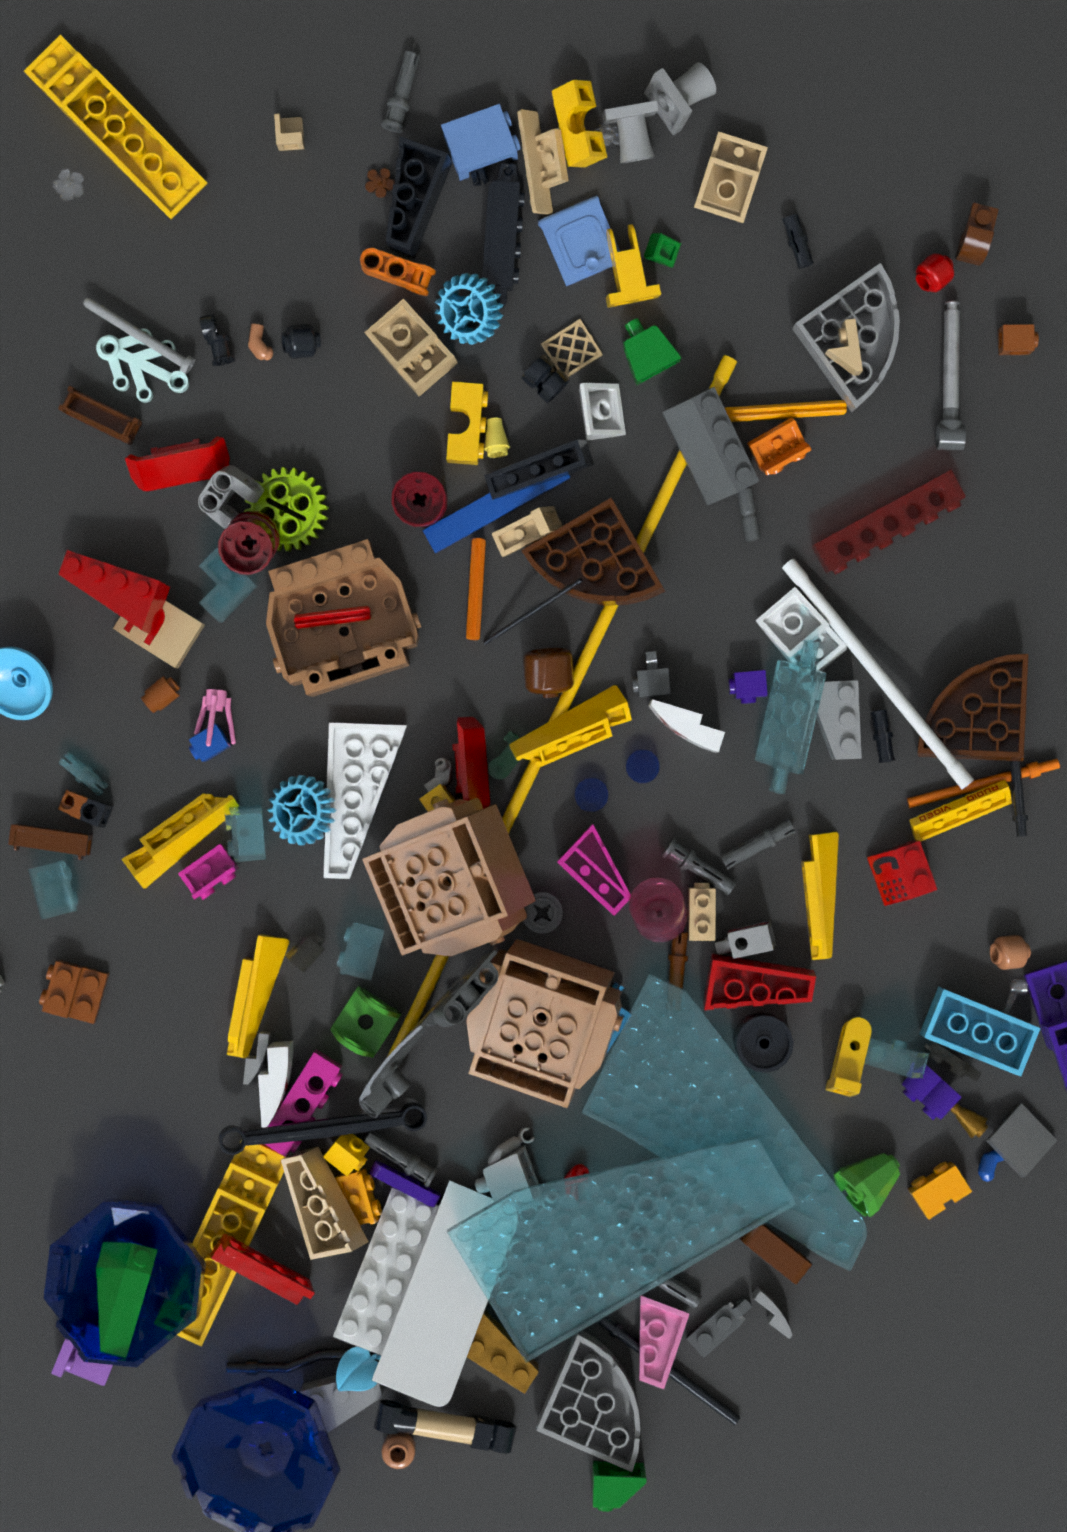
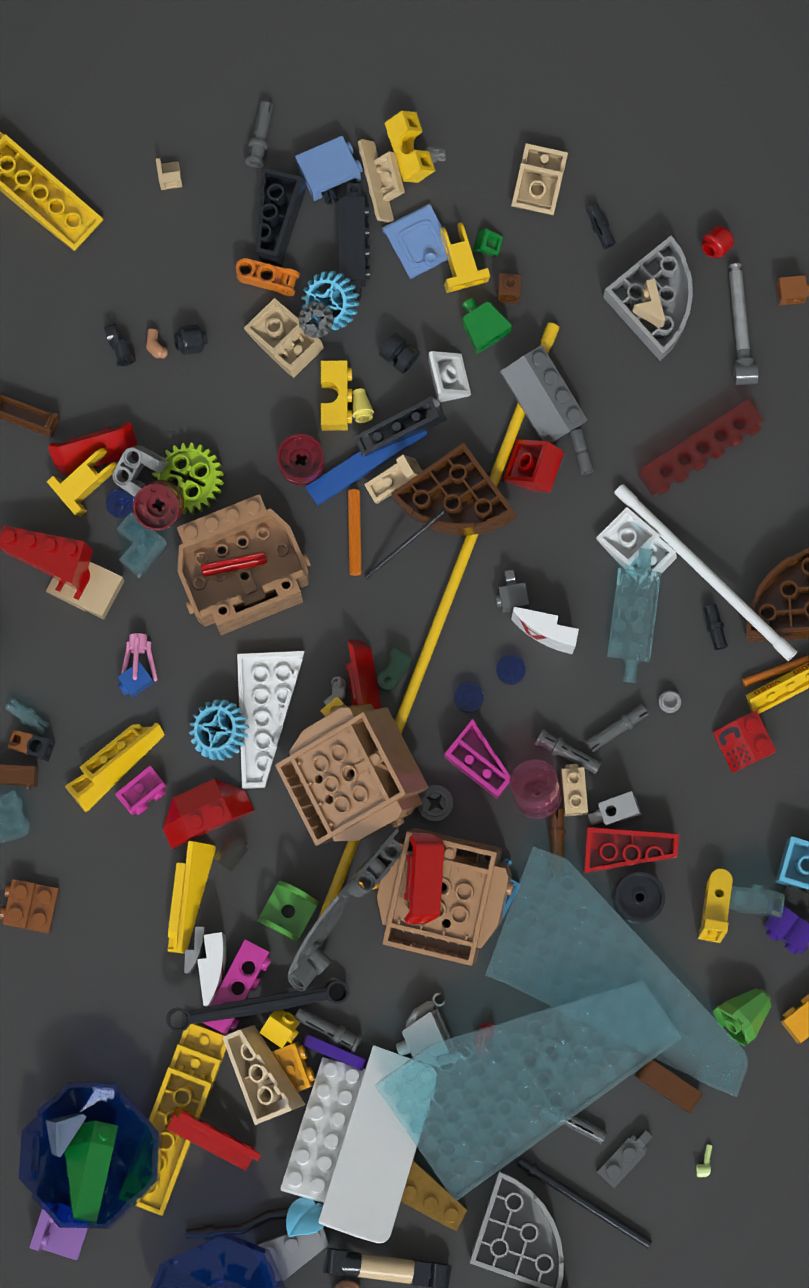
camera: 10 degrees left, 10 degrees down
(95, 1251) = (62, 1130): none -> sand blue slope
(137, 363) = (55, 368): light aqua plant -> none
(160, 506) = (81, 482): none -> yellow piece
(161, 694) = (90, 642): dark orange brick -> none
(185, 363) = (94, 366): light grey bar -> none
(205, 532) = (120, 503): none -> clear blue wheel
(246, 833) = (172, 754): clear light blue brick -> none
(279, 899) = (204, 810): none -> red wedge
(361, 950) = (279, 848): clear light blue bracket -> none
(379, 182) = (247, 208): reddish brown plant -> none
(455, 321) = (325, 324): none -> dark grey gear
(521, 1008) = (424, 878): none -> red piece
(548, 671) = (422, 594): reddish brown head -> none
(574, 729) = (449, 642): yellow wedge -> none
(589, 338) = (410, 317): tan window -> none
(632, 130) = (454, 146): light grey plant -> none
(659, 1340) = (572, 1174): bright pink wing -> none
(677, 96) = (487, 120): light grey plant -> none
(682, 310) = (509, 288): none -> reddish brown brick
(691, 527) = (533, 465): none -> red slope
(748, 686) = (595, 593): dark purple brick -> none
(775, 1317) = (675, 1145): light grey slope -> none
(779, 447) = (601, 393): orange bracket -> none
(788, 410) = (607, 363): light orange axle -> none
(805, 1346) = (704, 1170): none -> yellowish green hand
(820, 892) = (675, 765): yellow wedge -> none
(821, 818) = (669, 701): none -> light grey plate
(840, 719) = (677, 615): light grey wedge -> none
(977, 235) = (749, 208): reddish brown brick -> none

